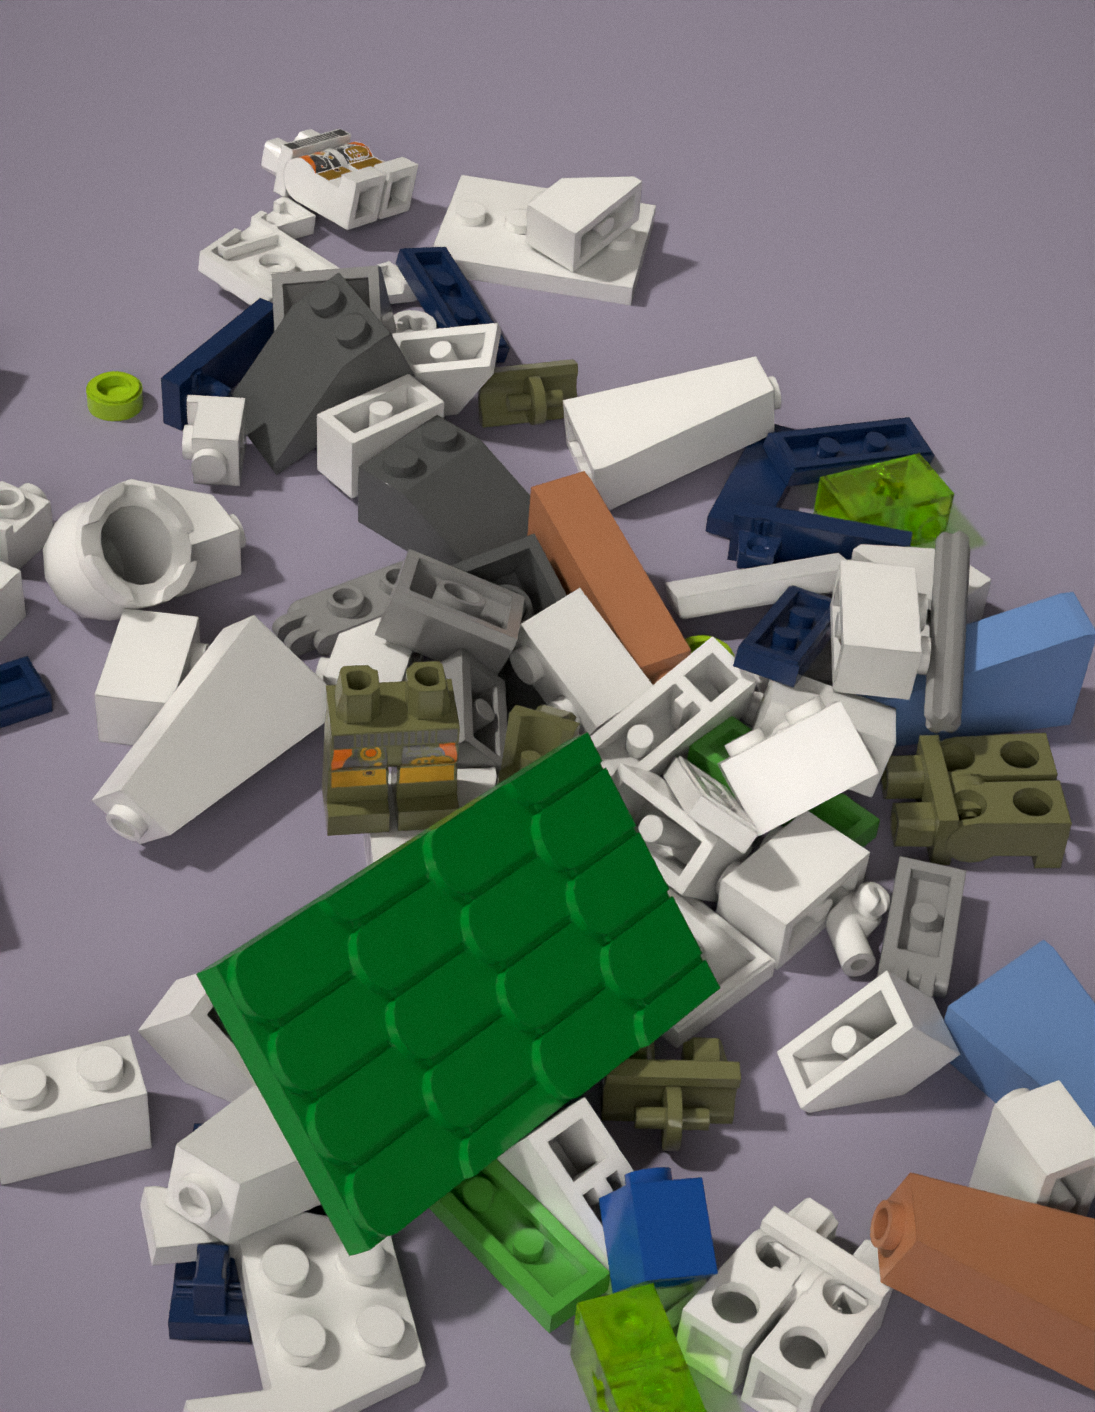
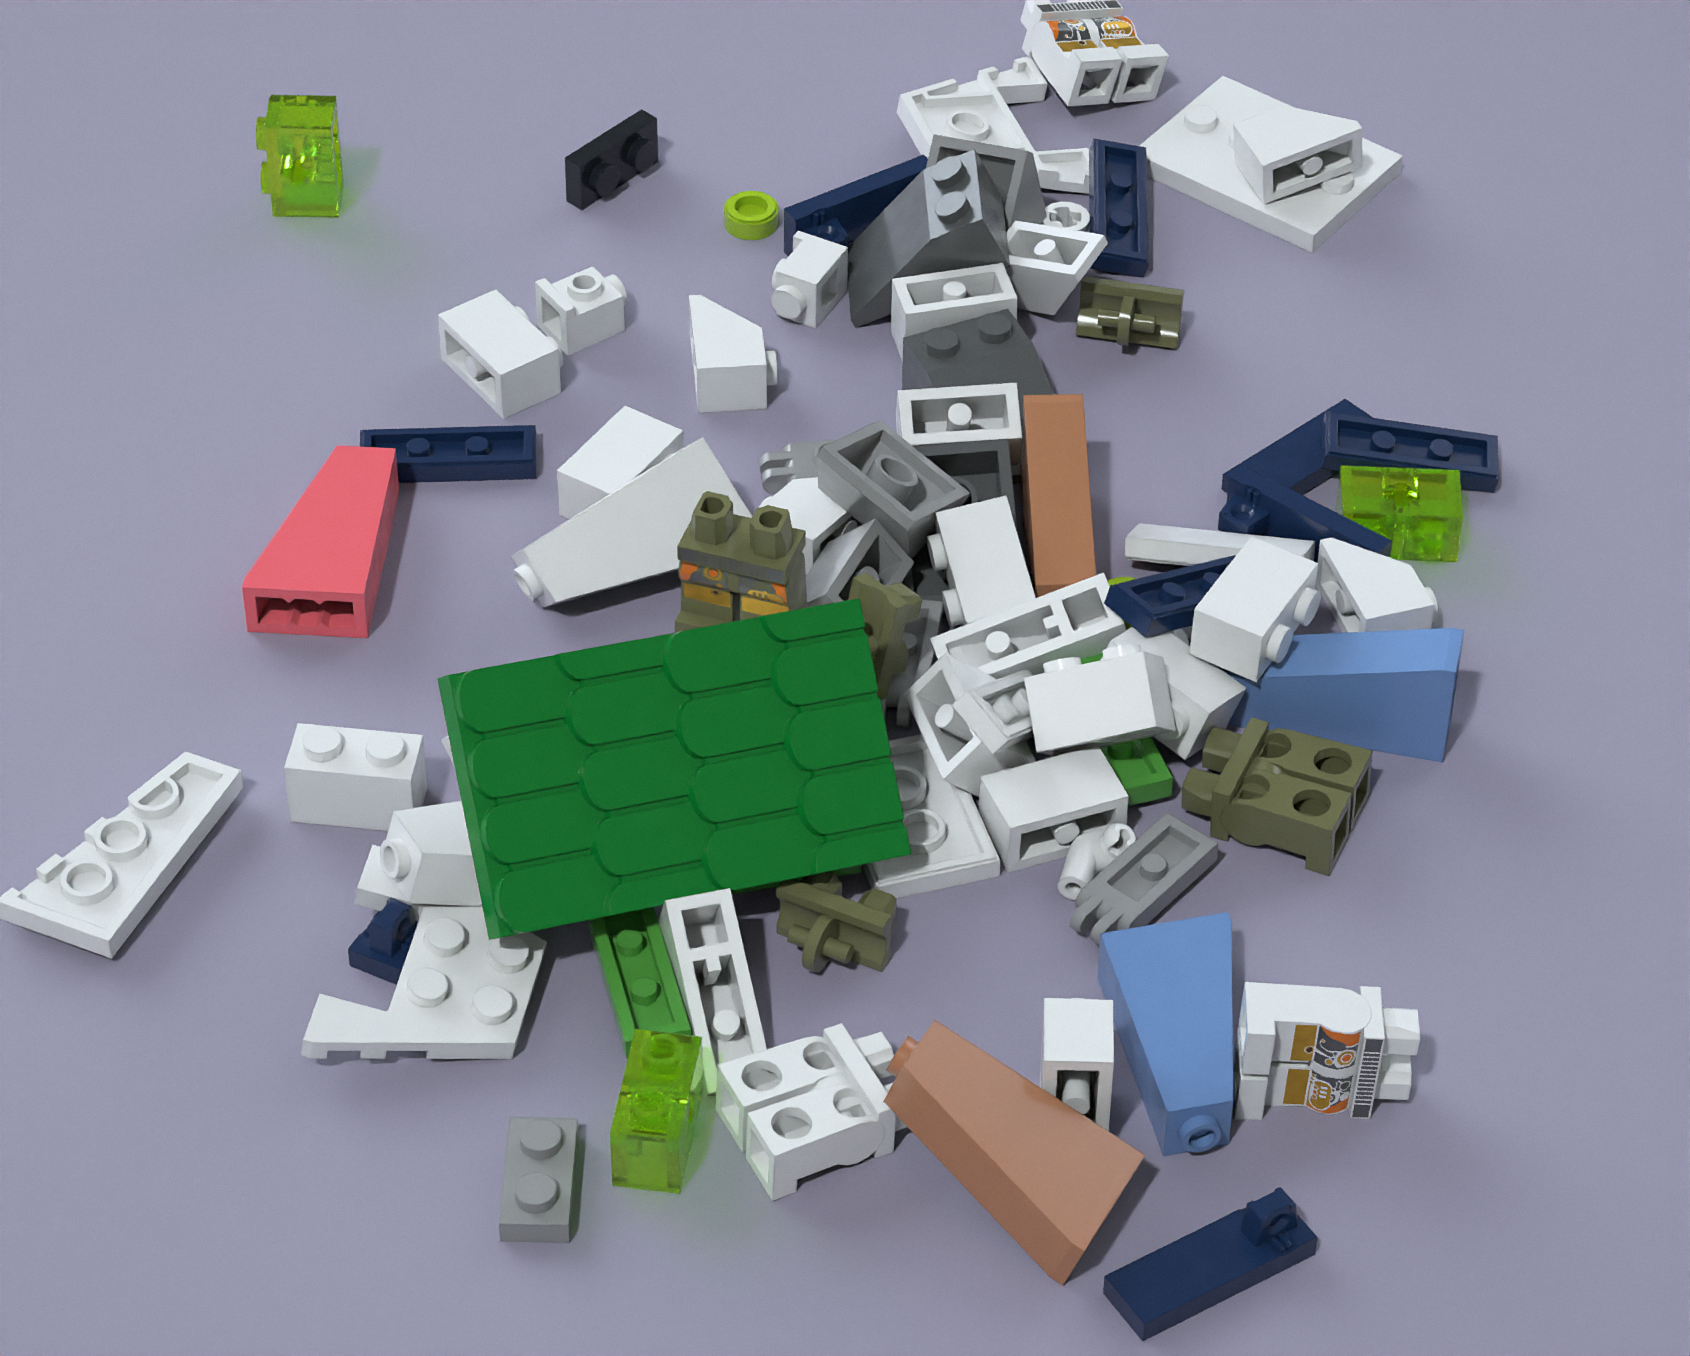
camera: 30 degrees right, 0 degrees up
(120, 552) = (645, 354): white tile -> none
(472, 524) = (960, 415): none -> white brick
(657, 1231) = (732, 1003): blue brick -> none
(668, 426) = (1235, 380): white slope -> none
(868, 1047) = (1026, 947): white slope -> none
(947, 632) = (1324, 631): light grey axle -> none

